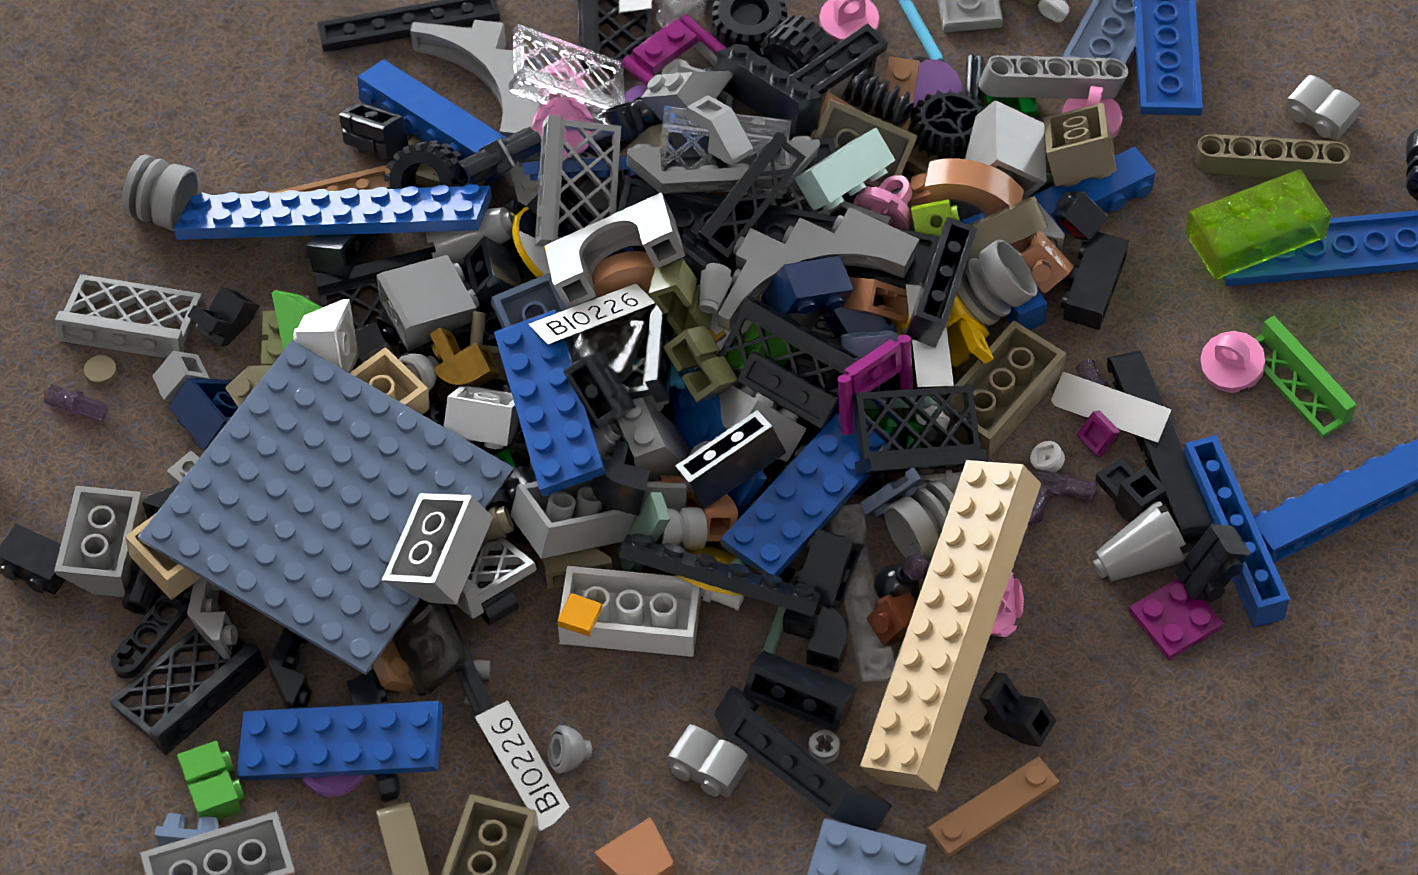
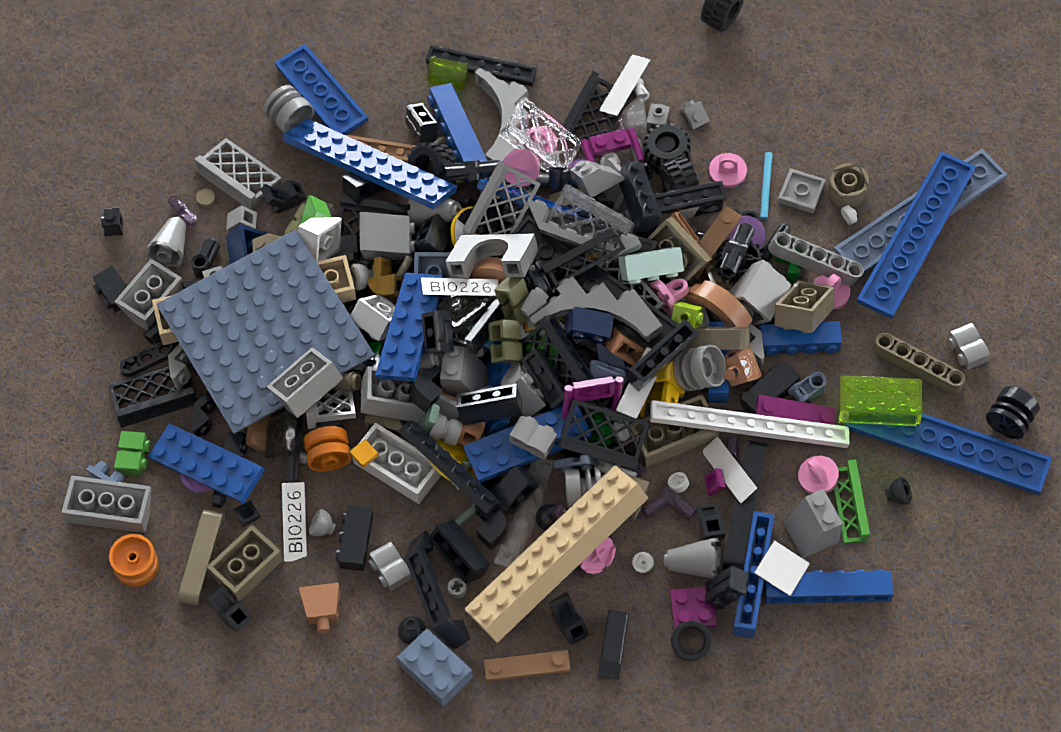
camera: 30 degrees right, 5 degrees up
(86, 456) = (168, 244): none -> light grey cone
(153, 454) = (205, 257): none -> black piece
(220, 159) = (321, 90): none -> blue plate
(365, 48) = (446, 72): none -> clear neon green brick
(441, 788) = (246, 513): none -> black tile
(515, 636) = (327, 449): none -> orange wheel
(630, 745) = (355, 537): none -> black brick
(726, 135) = (590, 212): light grey slope -> none
(794, 837) = (410, 629): none -> black brick
(822, 476) = (533, 437): none -> light grey brick
(879, 99) = (703, 229): black piece -> none
(892, 617) = (531, 532): copper brick -> none
(944, 107) = (737, 250): none -> black piece
(1067, 587) = (643, 562): none -> white tile
(1079, 215) = (778, 348): black brick -> none
(1099, 716) = (613, 644): none -> black piece
(1102, 331) = (749, 424): none -> white plate
(1145, 258) = (805, 391): none -> sand blue piece
(1150, 290) = (794, 410): none -> magenta plate
(1226, 646) = (706, 638): none -> black tyre
(1271, 501) = (782, 568): none -> white sticker
(1275, 424) = (814, 524): none -> light grey slope
(1354, 335) = (899, 492): none -> black brick

